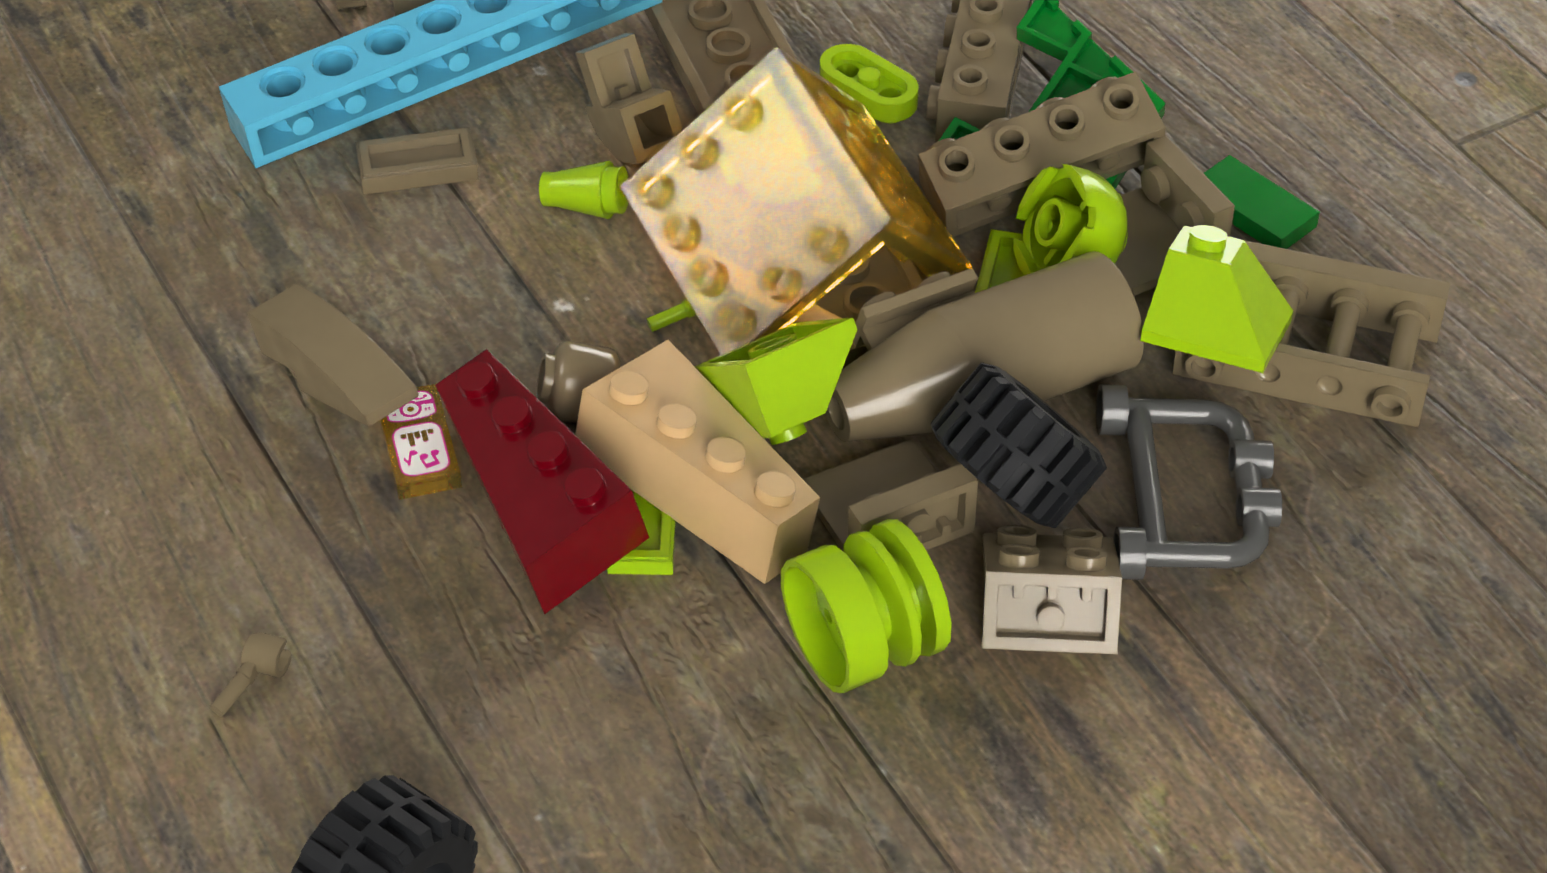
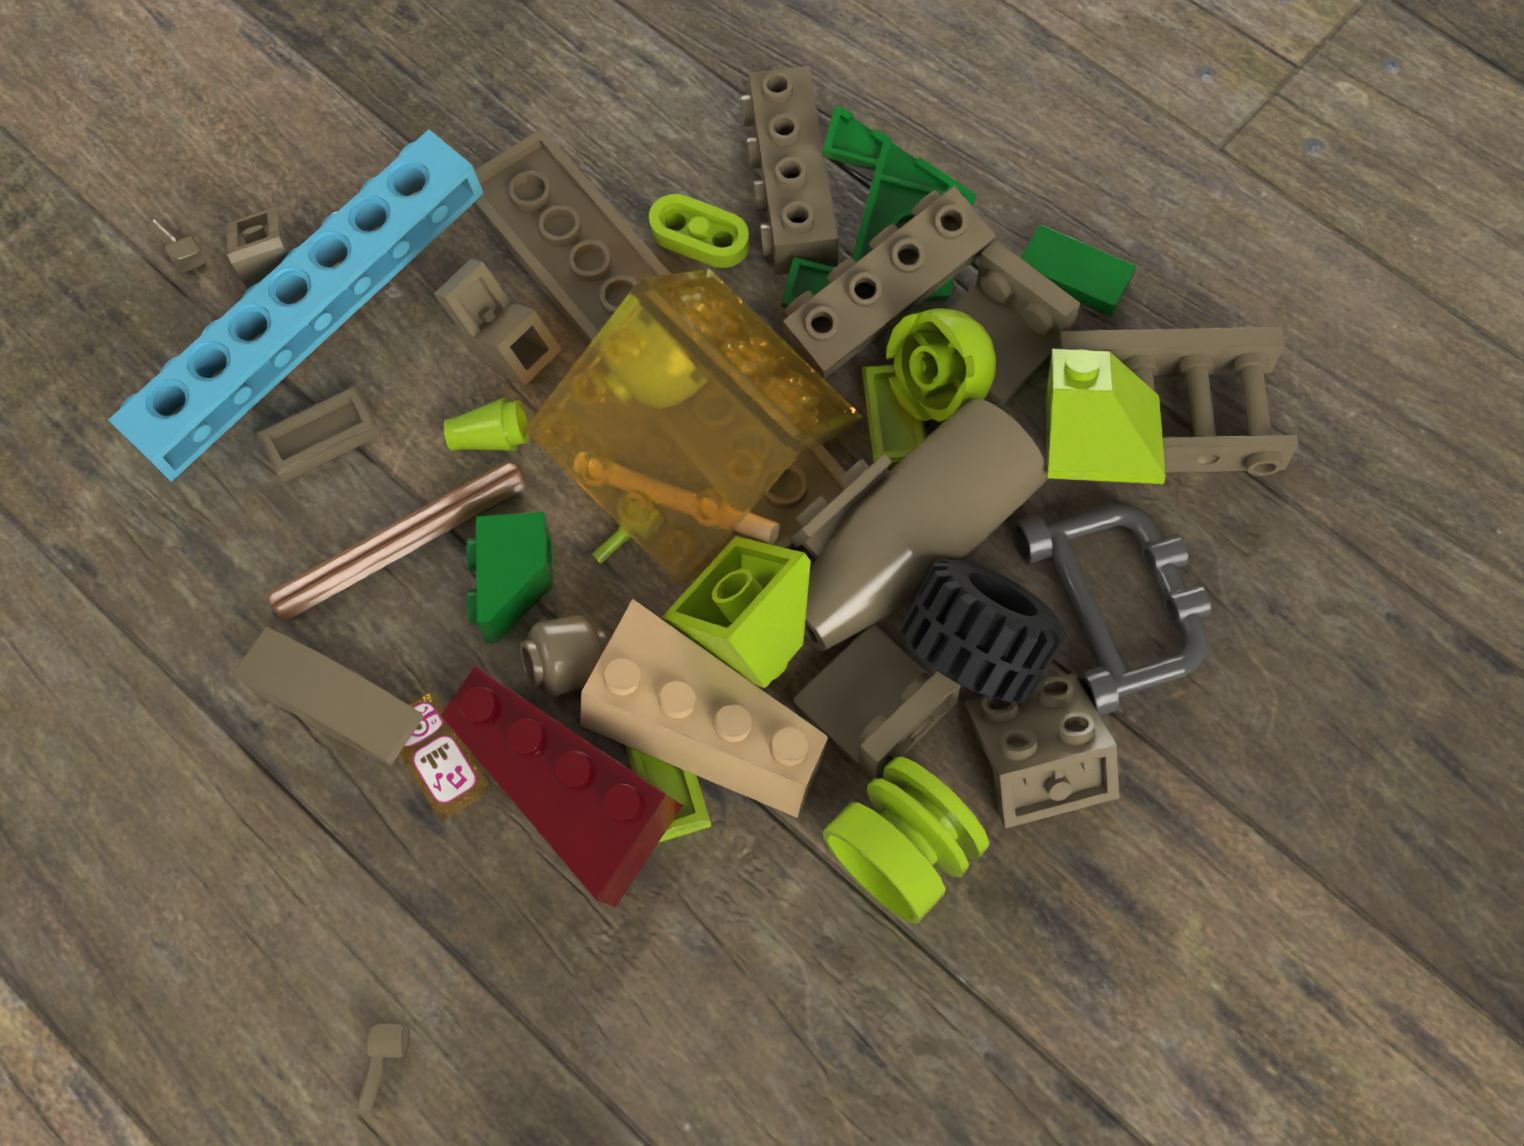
camera: 15 degrees left, 20 degrees up
(456, 259) = (396, 540): none -> medium nougat axle
(556, 301) = (511, 570): none -> green slope

